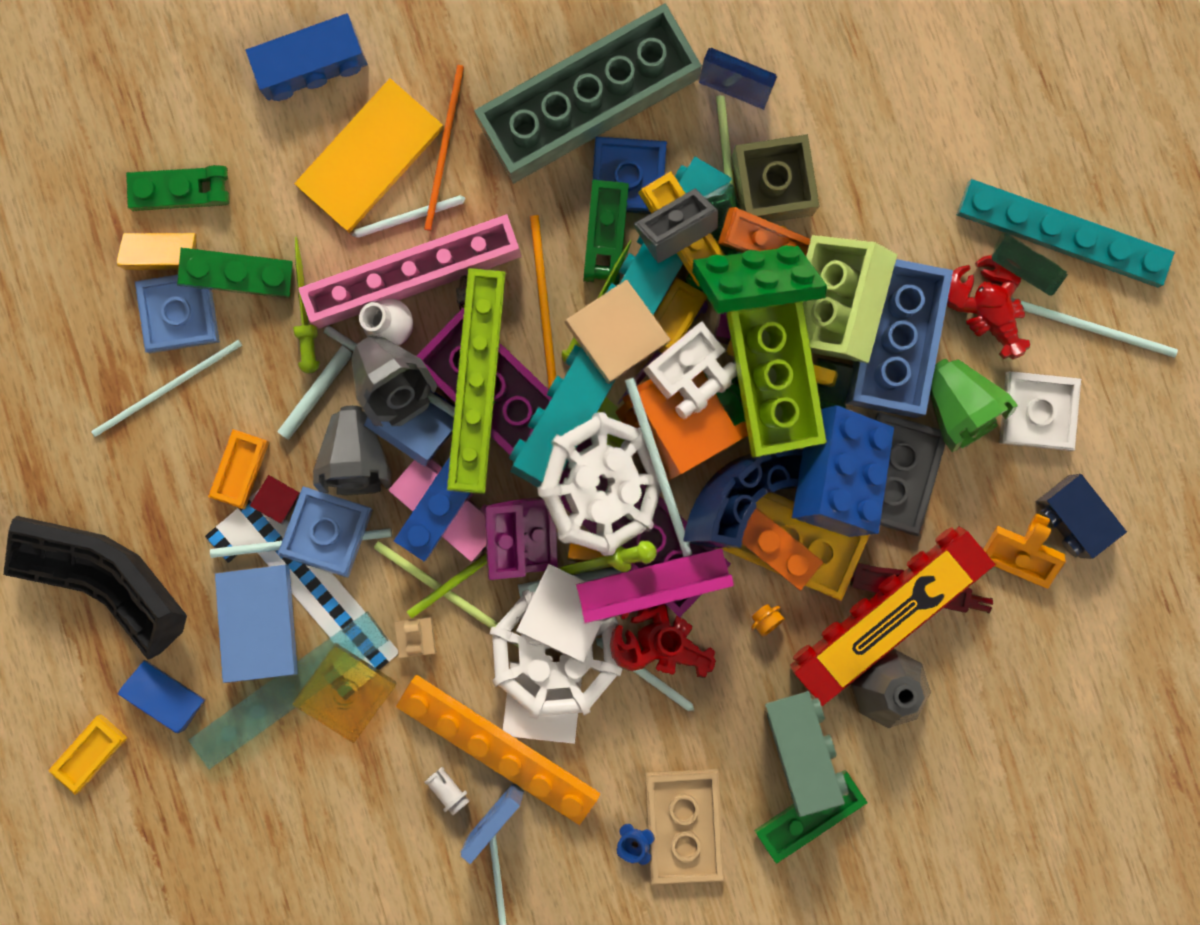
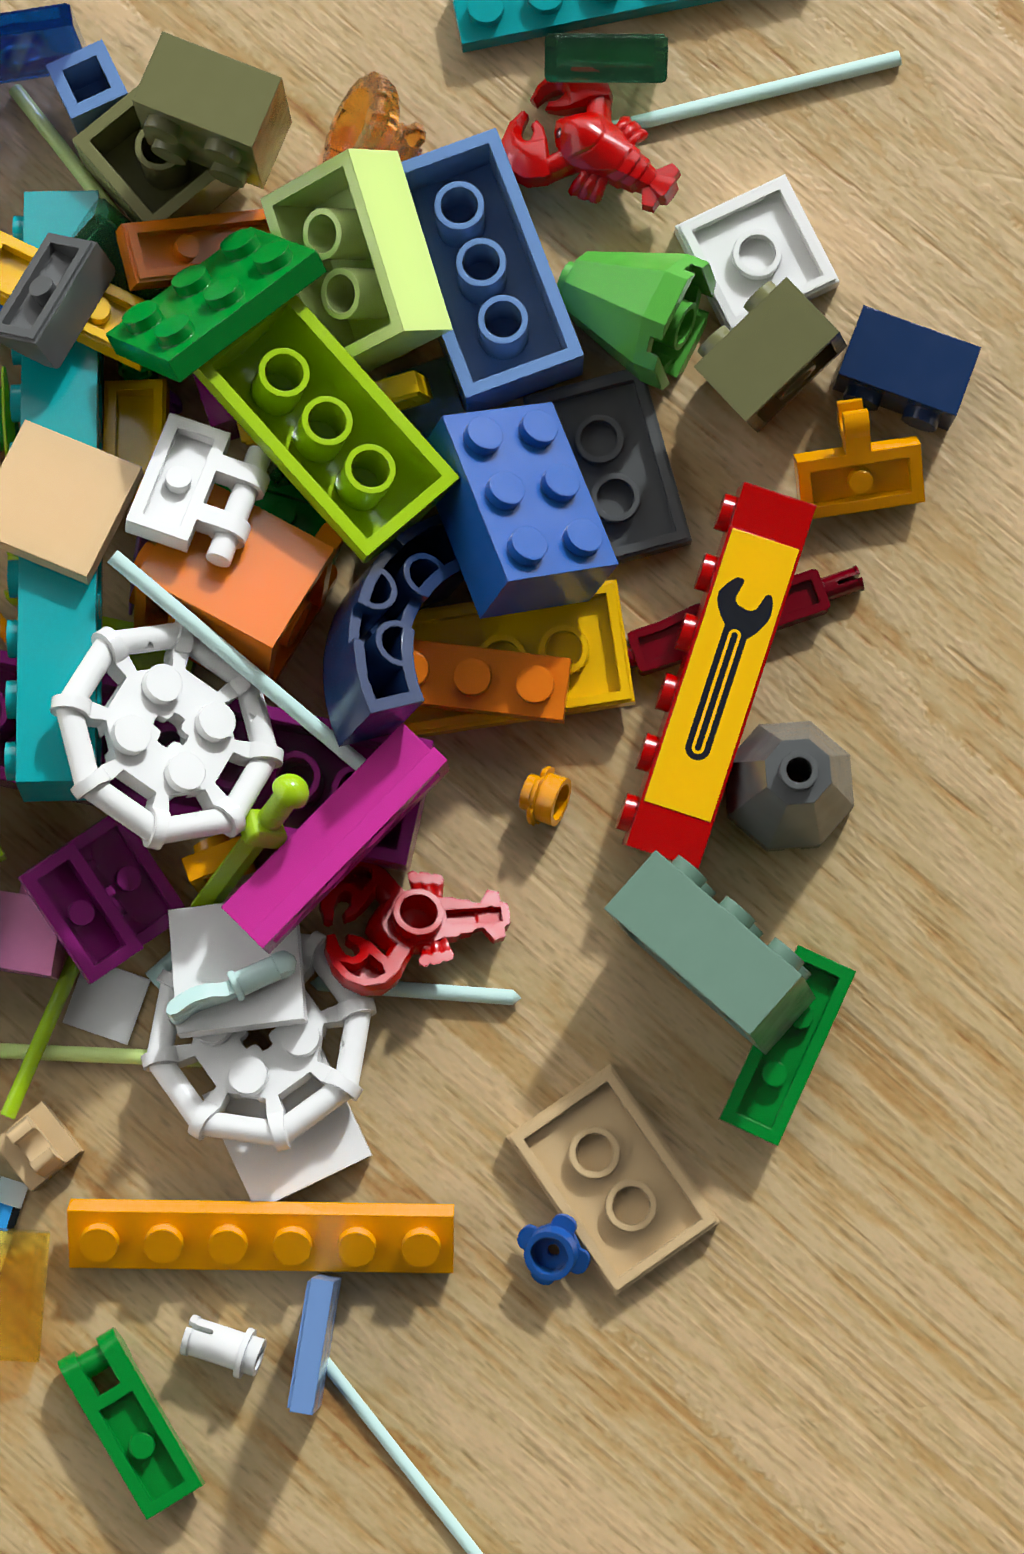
camera: 30 degrees left, 5 degrees down
(380, 802) = (131, 1425): none -> green plate
(490, 592) = (108, 1005): none -> white sticker
(563, 626) = (240, 983): none -> light aqua piece
(759, 121) = (87, 83): none -> medium blue brick
(816, 178) = (212, 112): none -> olive brick
(887, 226) = (371, 121): none -> clear orange hair
(1020, 472) = (769, 352): none -> olive brick

